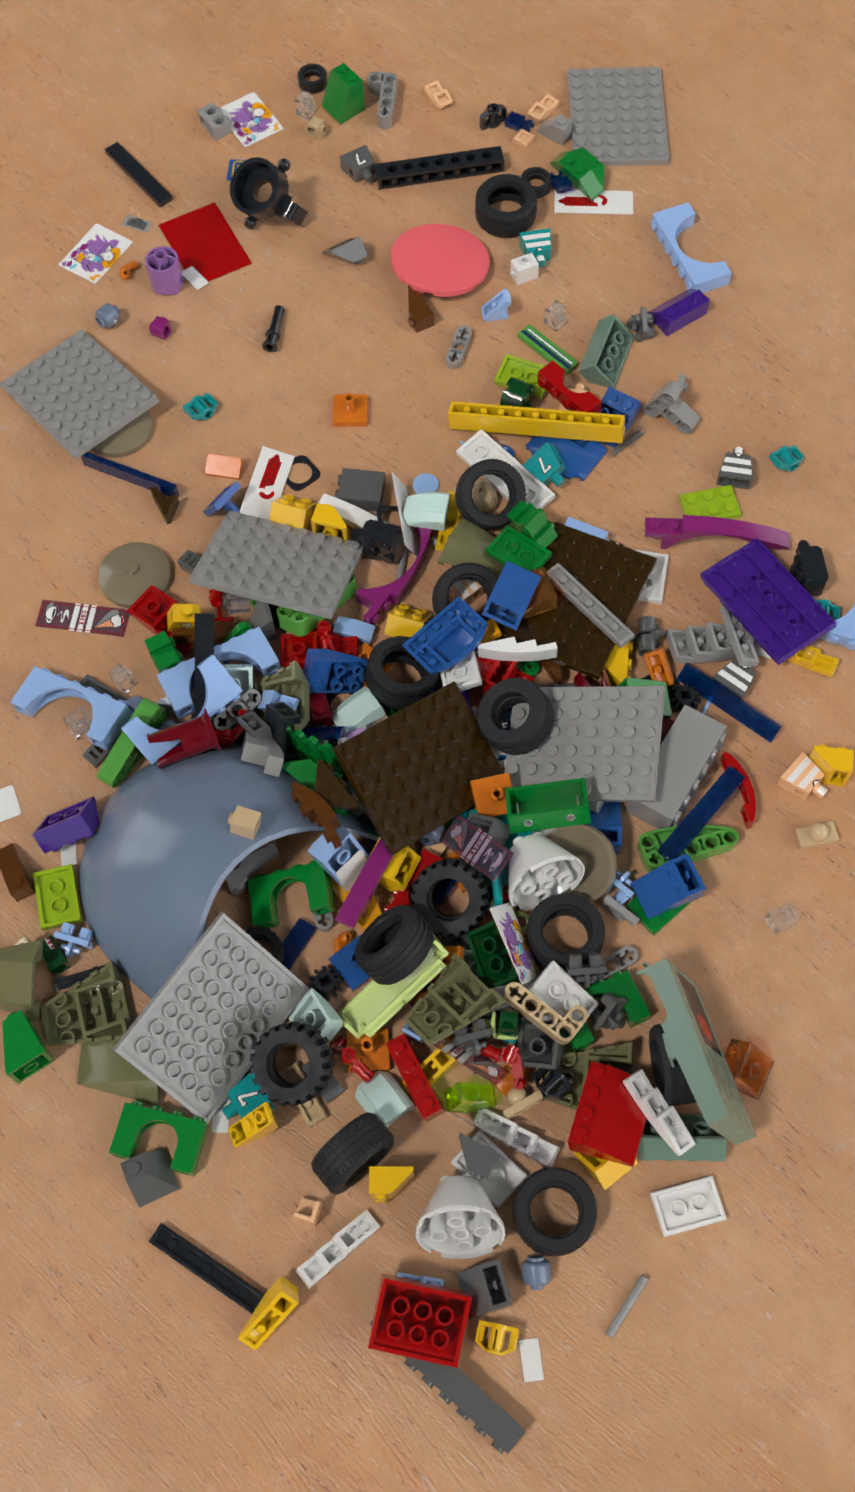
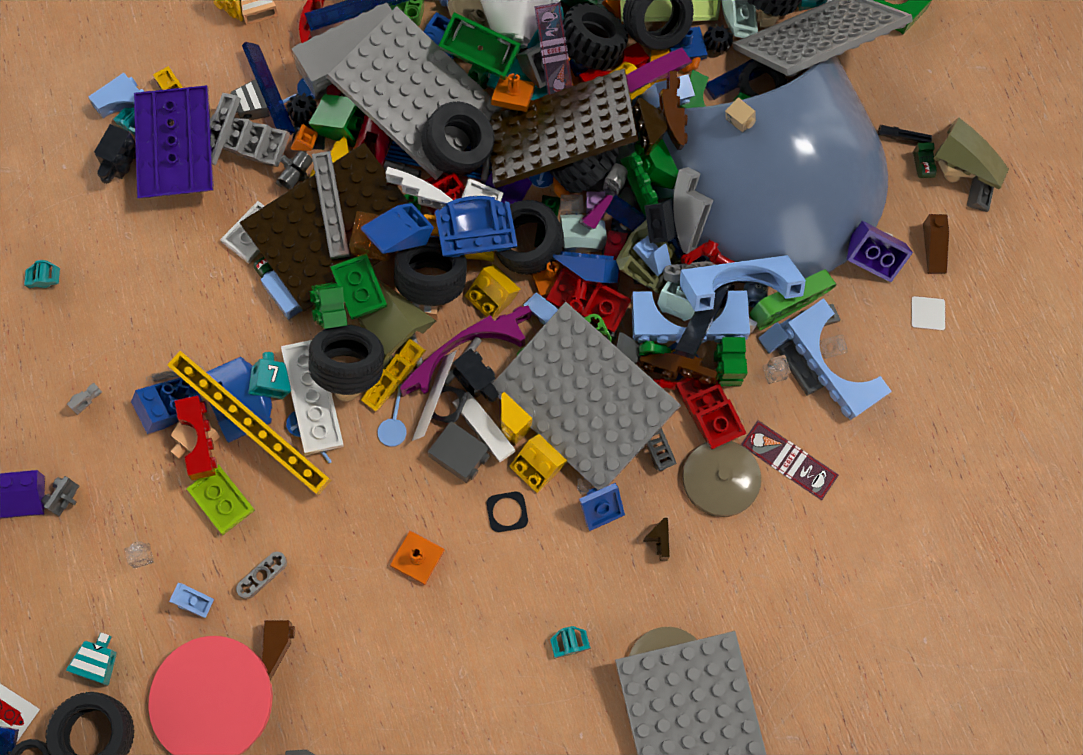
camera: 160 degrees left, 5 degrees up
(23, 1047) = (971, 95): green slope -> none
(57, 897) = (906, 205): lime plate -> none
(66, 934) = (905, 163): light blue hips -> none
(89, 1010) = (911, 102): olive wedge -> none
(109, 1072) = (896, 62): olive wedge -> none
(128, 474) = (679, 591): clear blue tile -> none
(182, 615) = (697, 385): yellow torso -> none
(195, 736) = (753, 245): dark red piece -> none
(223, 466) = (580, 555): slope -> none
(255, 725) = (685, 236): dark grey slope -> none
(266, 482) = (548, 509): white sticker -> none
(272, 334) = (425, 729): black pin -> none
(350, 718) = (593, 217): none -> magenta slope
(427, 510) = (411, 382): light aqua slope -> none
(517, 393) = (246, 467): dark green brick -> none
(524, 268) = (135, 639): white head -> none
(547, 348) = (174, 522): bright green tile -> none
(606, 352) = (120, 482): sand green slope -> none
(667, 402) = (108, 378): light grey beam -> none
(690, 526) = (201, 246): magenta slope -> none
(711, 502) = (147, 268): lime plate -> none
(736, 470) = (97, 287): dark grey torso -> none

